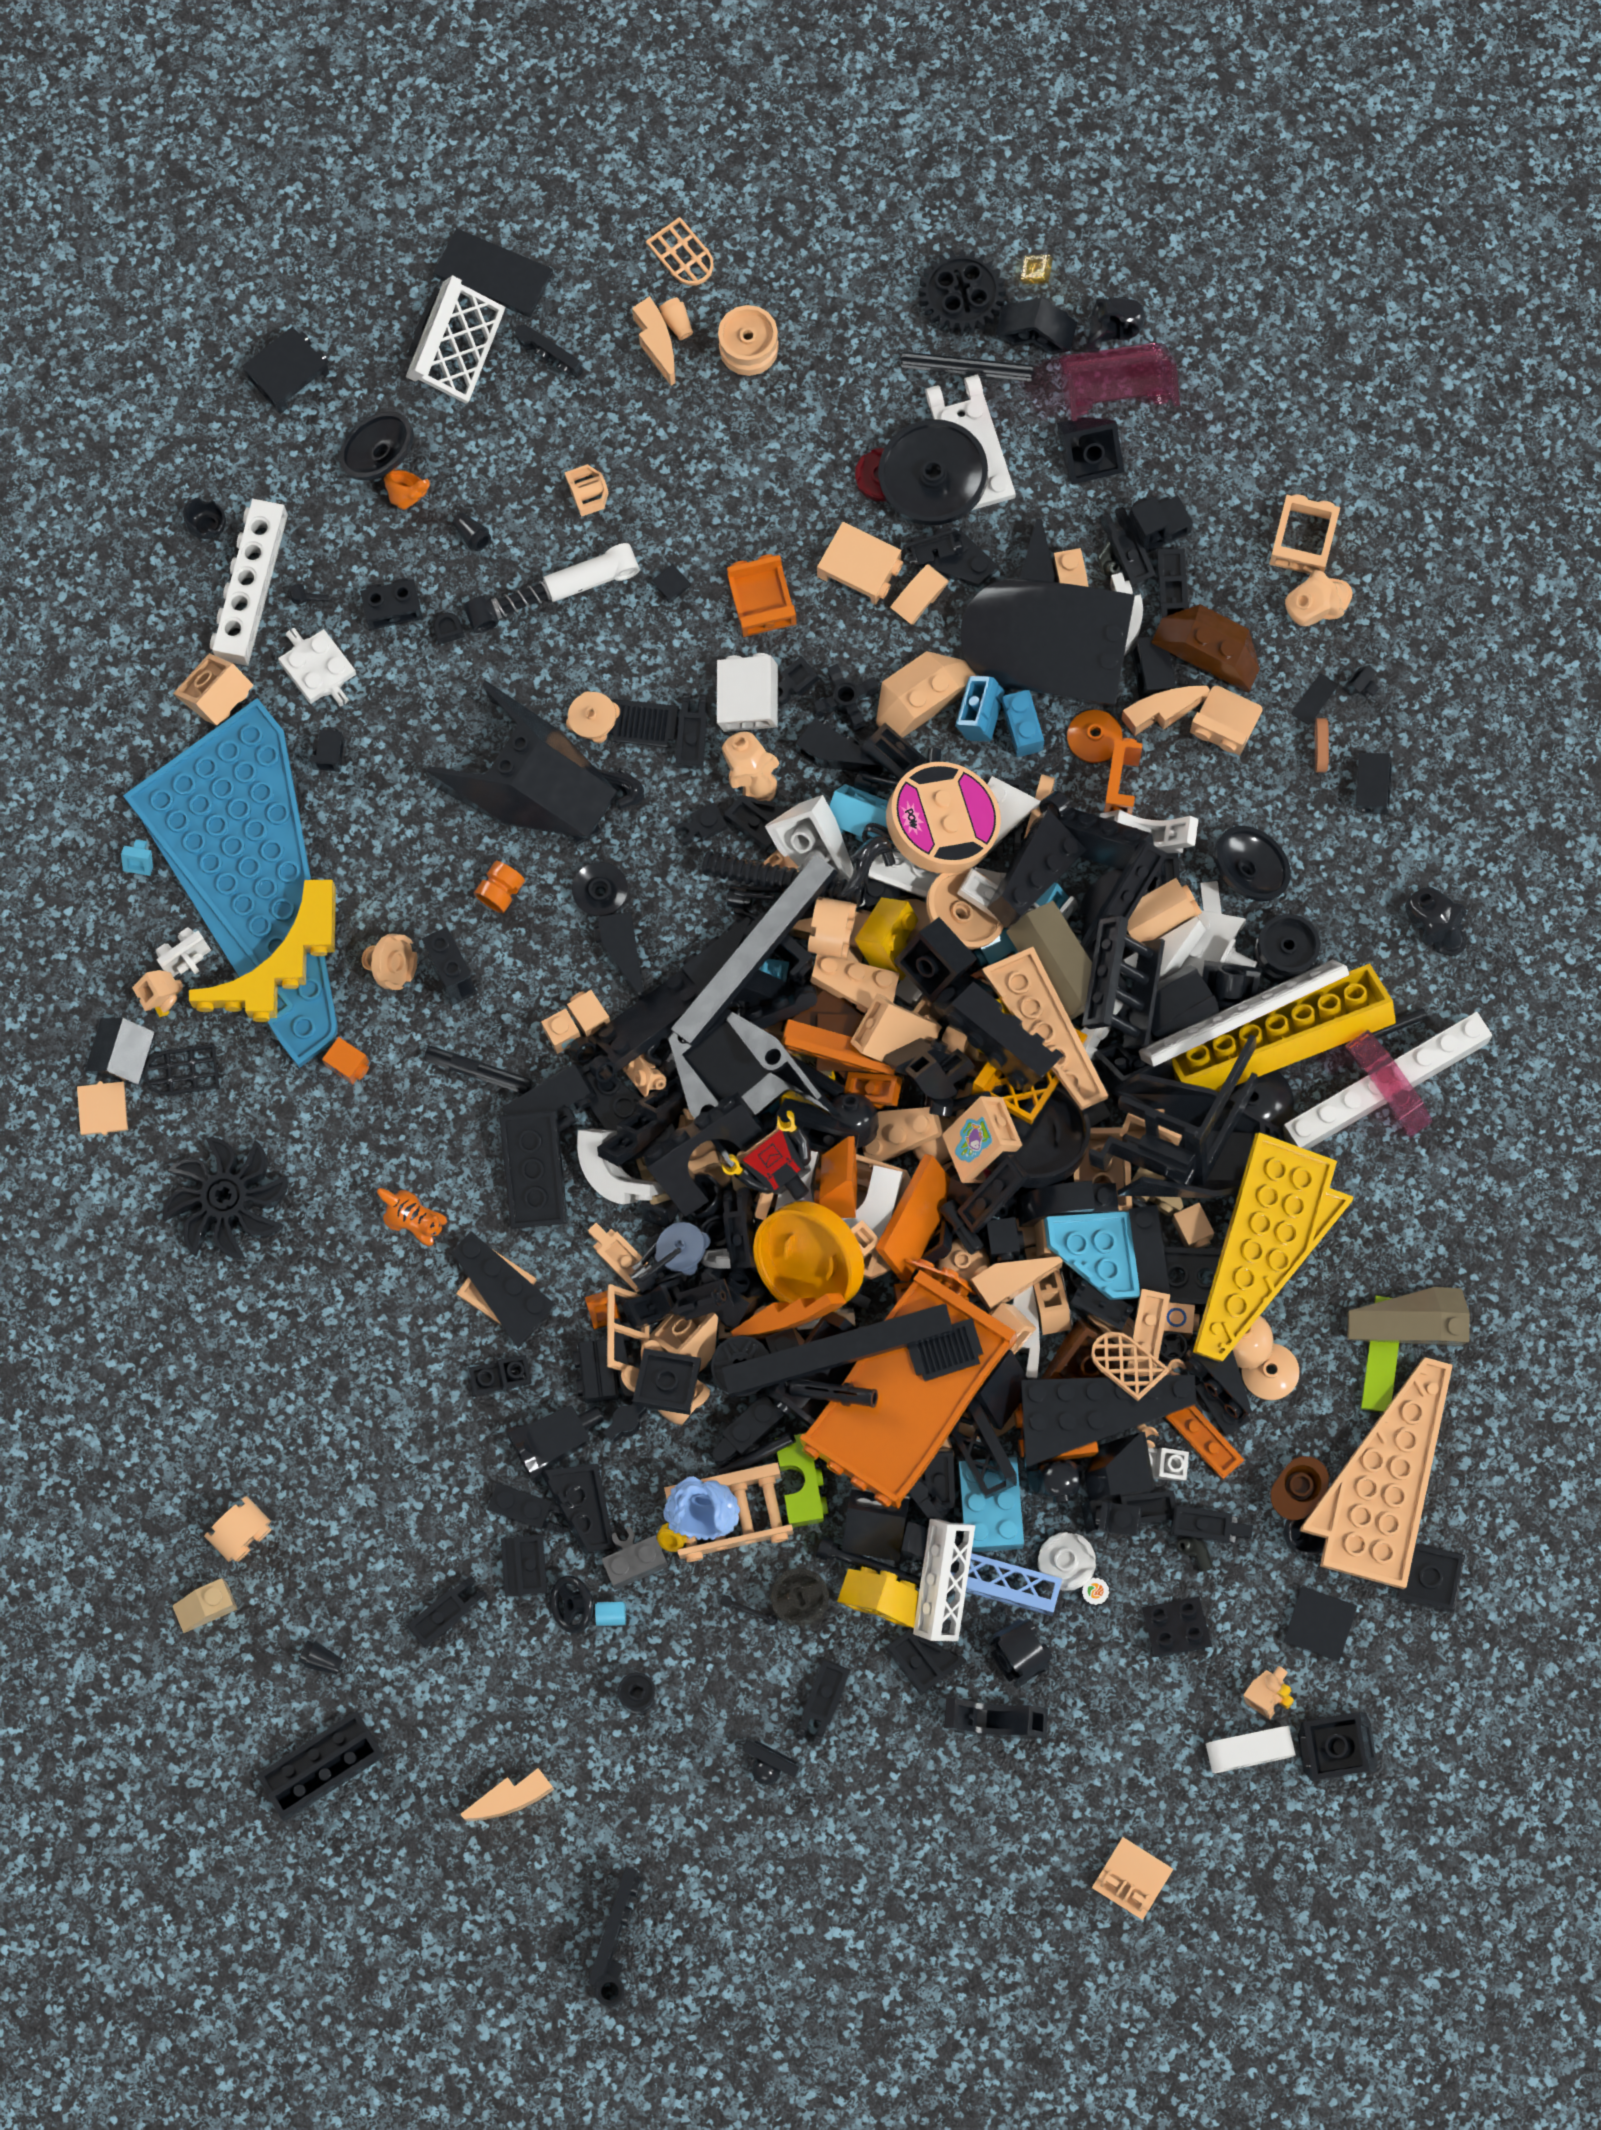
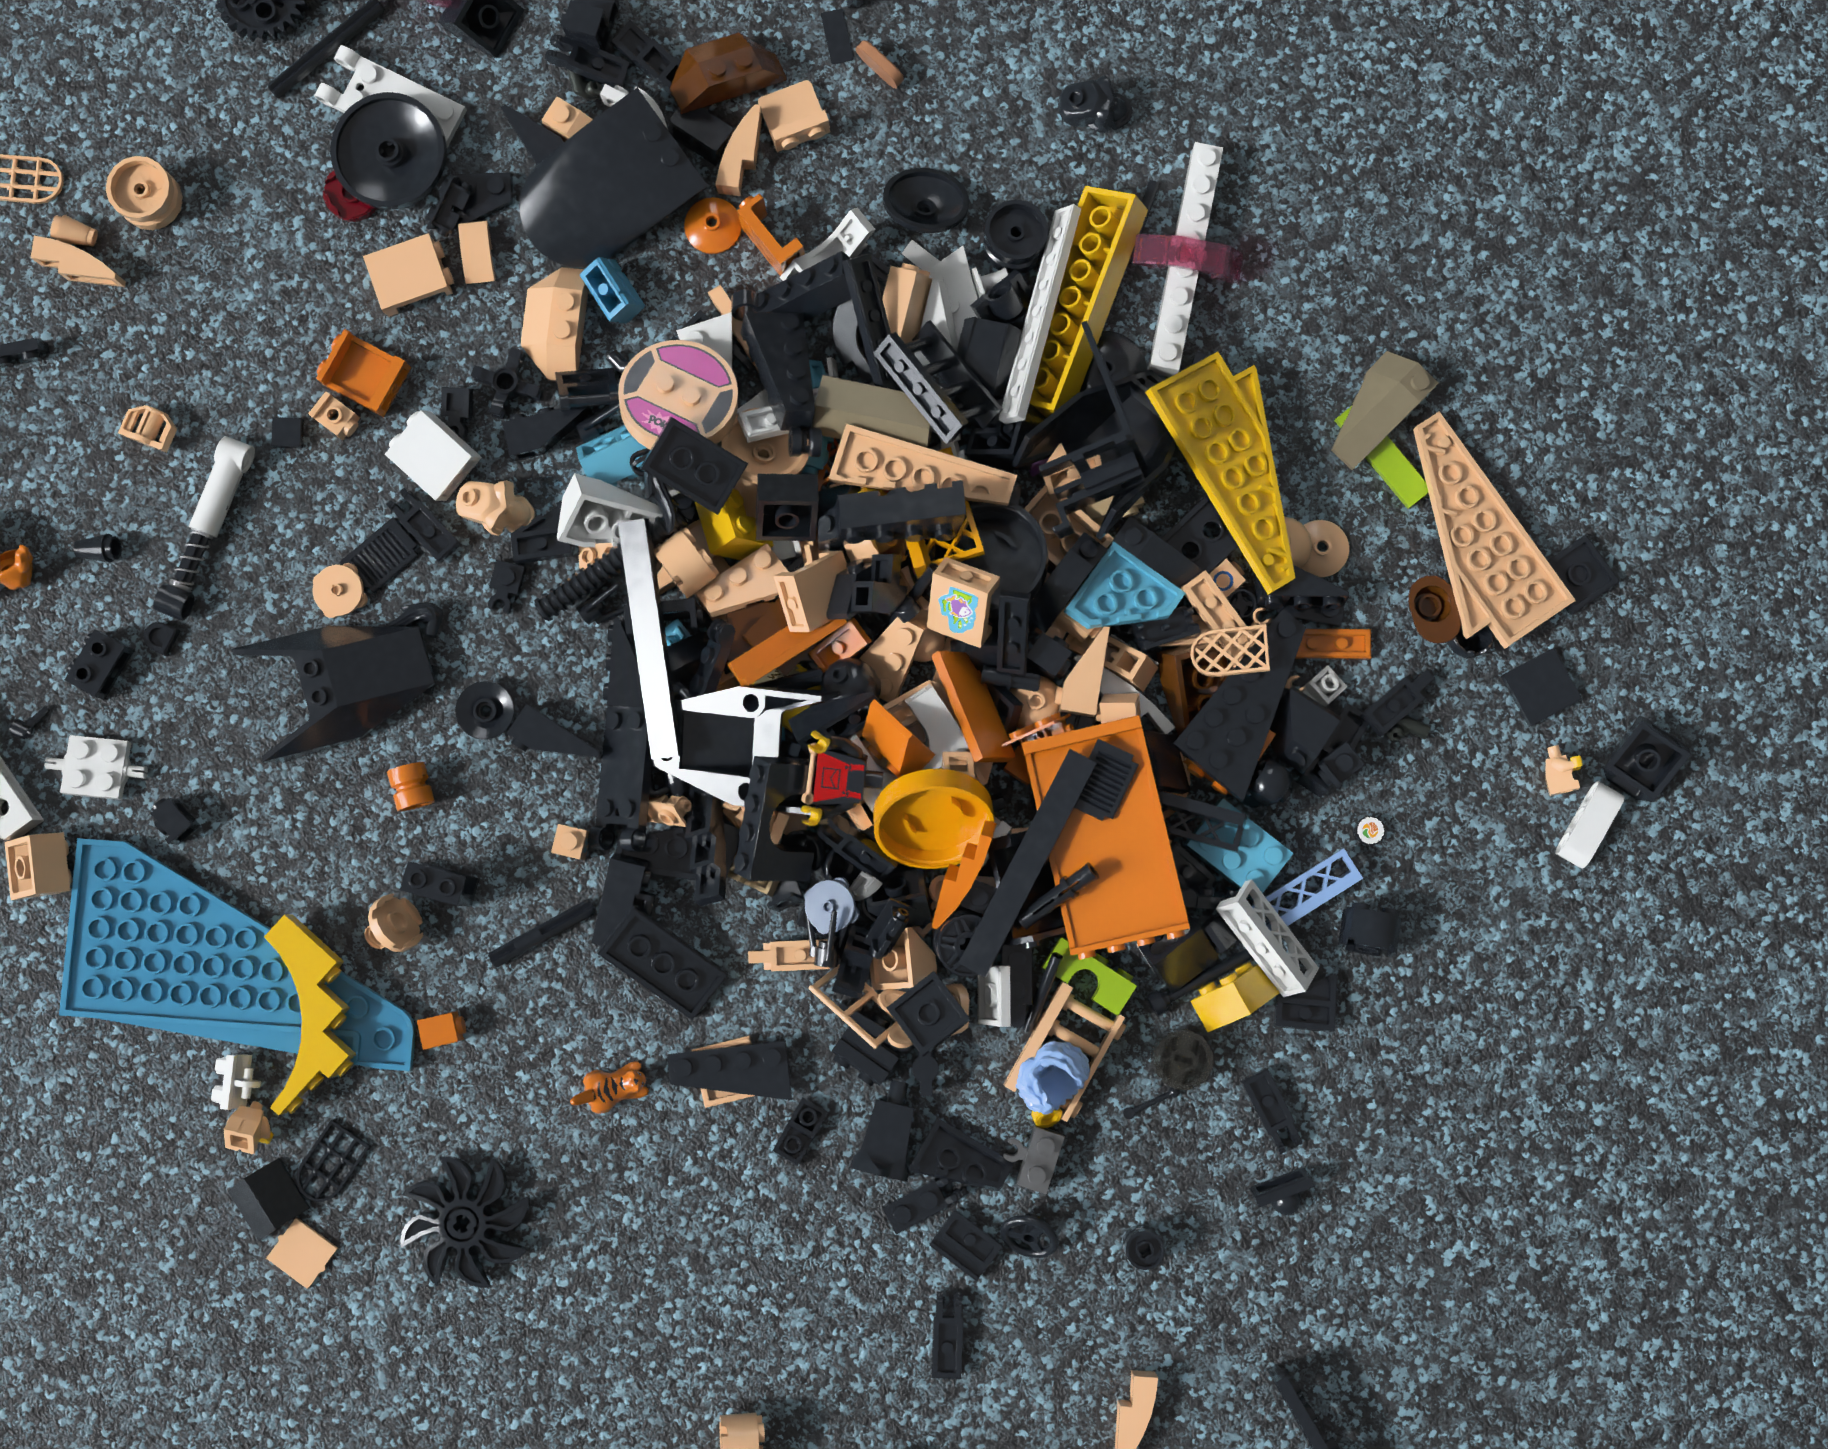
camera: 50 degrees left, 10 degrees up
(137, 858) = (122, 1048): medium azure tile -> none
(588, 1012) = (575, 808): light nougat brick -> none
(597, 1308) = (814, 1008): orange slope -> none
(608, 1178) = (733, 912): white arch -> none
(610, 1613) = (1061, 1210): medium azure brick -> none
(712, 593) = (326, 408): none -> light nougat brick
(722, 1421) = (994, 997): none -> white tile
(903, 868) = (693, 465): none -> black tile
(989, 926) = (805, 442): none -> black wheel
(996, 1720) = (1403, 993): black arch -> none
(1022, 723) = (654, 269): dark azure brick -> none
(1068, 1558) = (1328, 829): white tile -> none
(1132, 1878) = (1606, 998): light nougat hinge -> none
(1176, 1627) = (1451, 795): black hinge -> none
(1193, 1227) = (1163, 504): light nougat brick -> none
(1374, 783) = (945, 52): black hinge -> none

